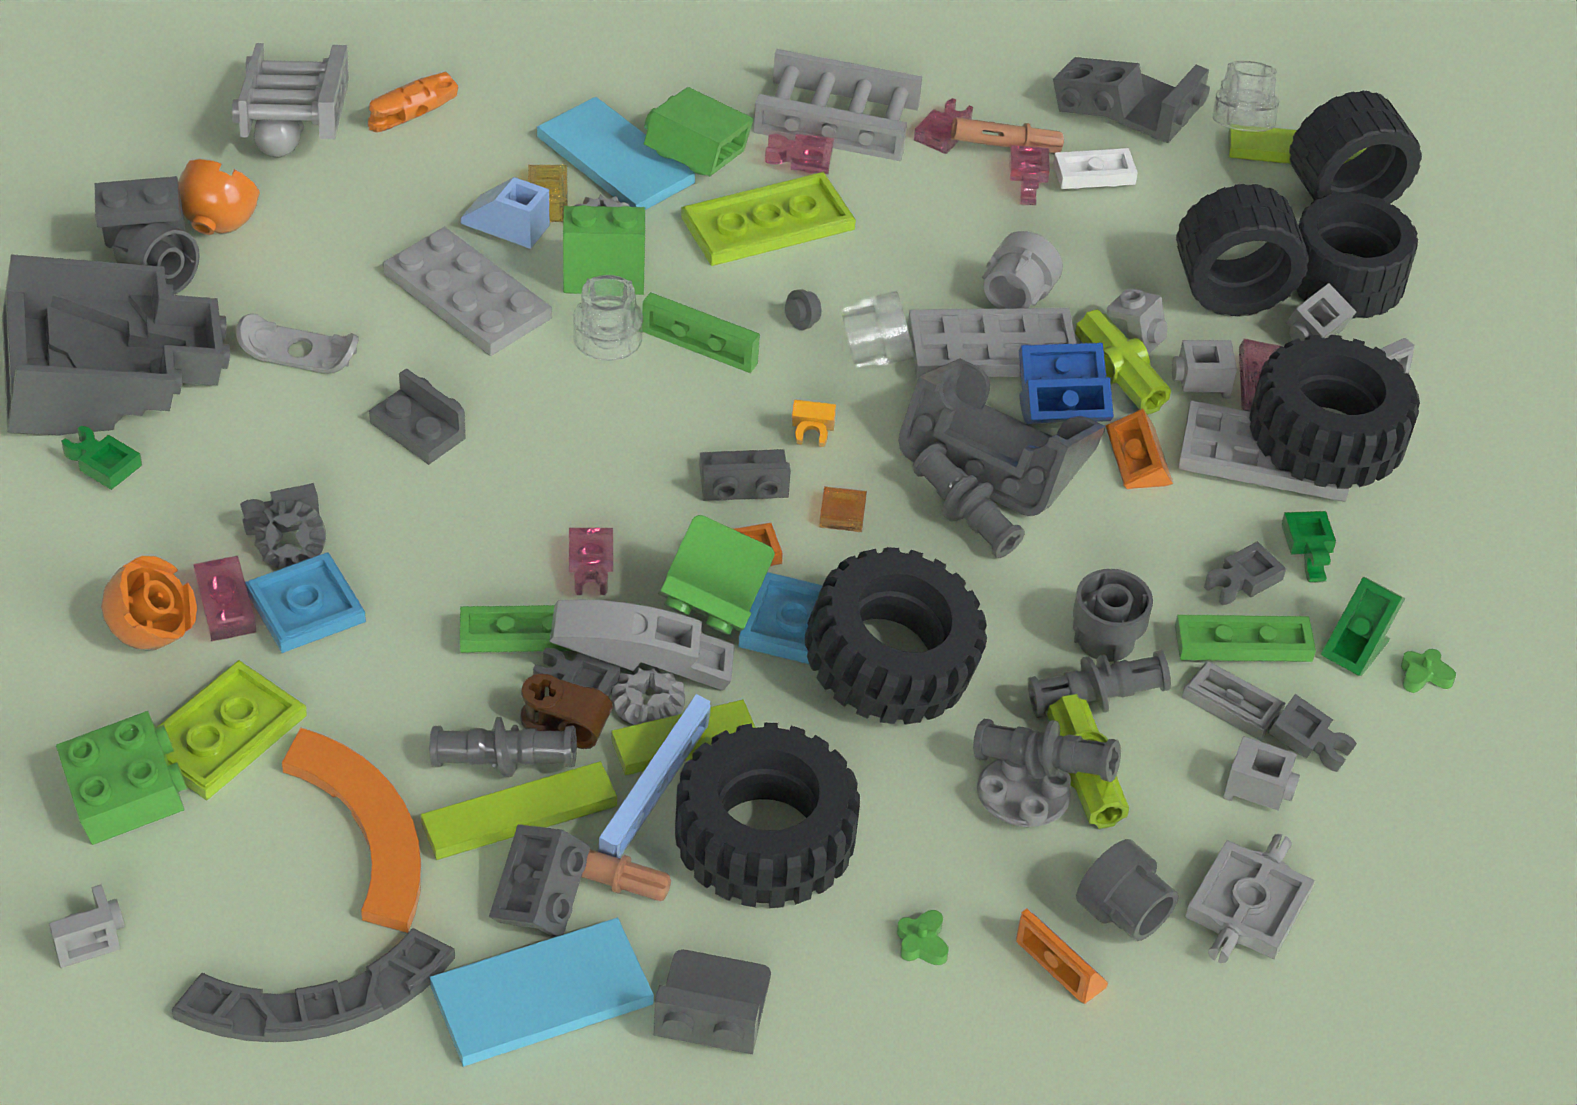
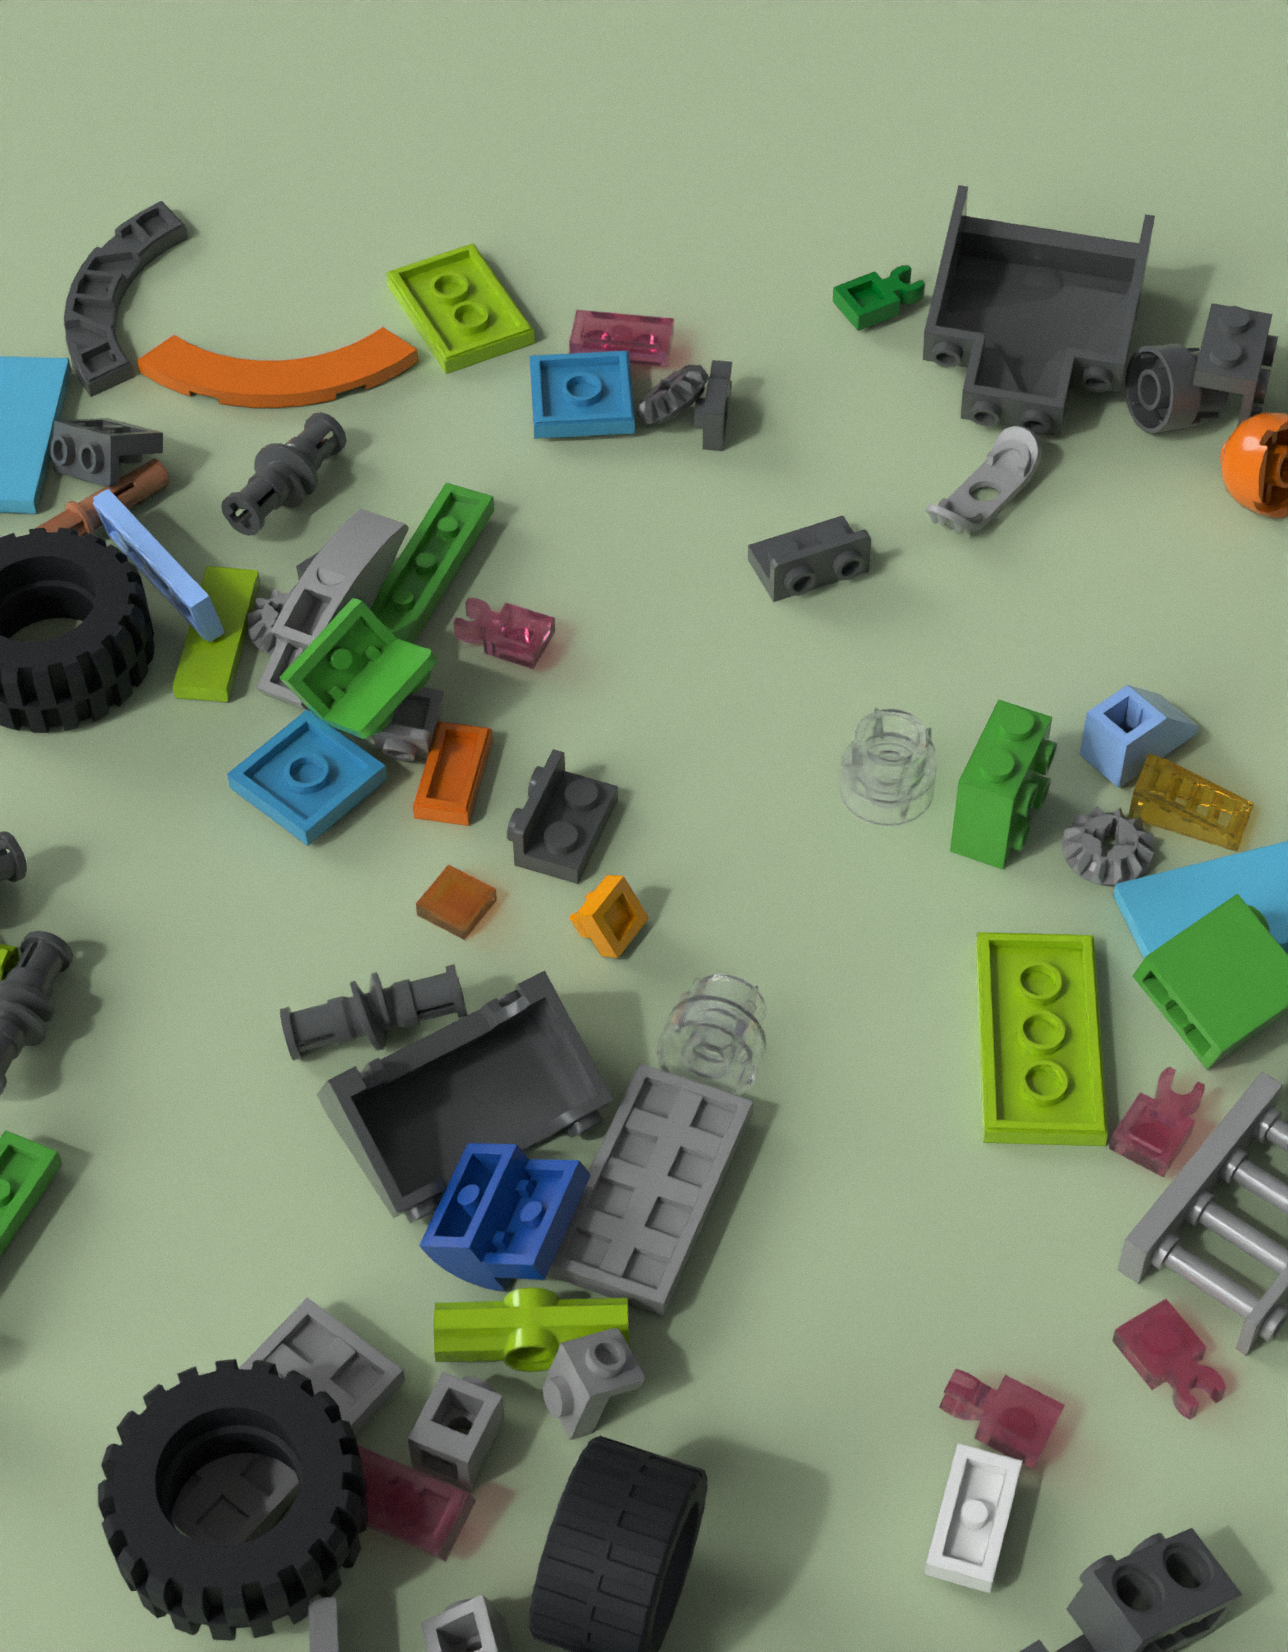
camera: 120 degrees right, 5 degrees up
(88, 933) = (277, 172): light grey bracket -> none
(122, 777) = (423, 208): bright green brick -> none
(148, 604) = (620, 261): orange cylinder -> none
(467, 291) = (1033, 662): light grey plate -> none
(534, 803) = (214, 473): lime tile -> none
(565, 706) = (297, 533): reddish brown piece -> none
(700, 332) = (823, 857): bright green plate -> none
(802, 309) = (819, 986): dark grey plate -> none
(877, 676) = (153, 766): black tyre -> none
(1008, 135) = (1096, 1416): nougat axle -> none
(1022, 271) = (748, 1259): light grey piece -> none
(1111, 613) = (91, 1060): dark grey piece -> none
(1138, 452) = (365, 1281): orange slope -> none
(1246, 570) = (81, 1285): dark grey plate -> none
(1313, 536) = (87, 1397): green plate -> none

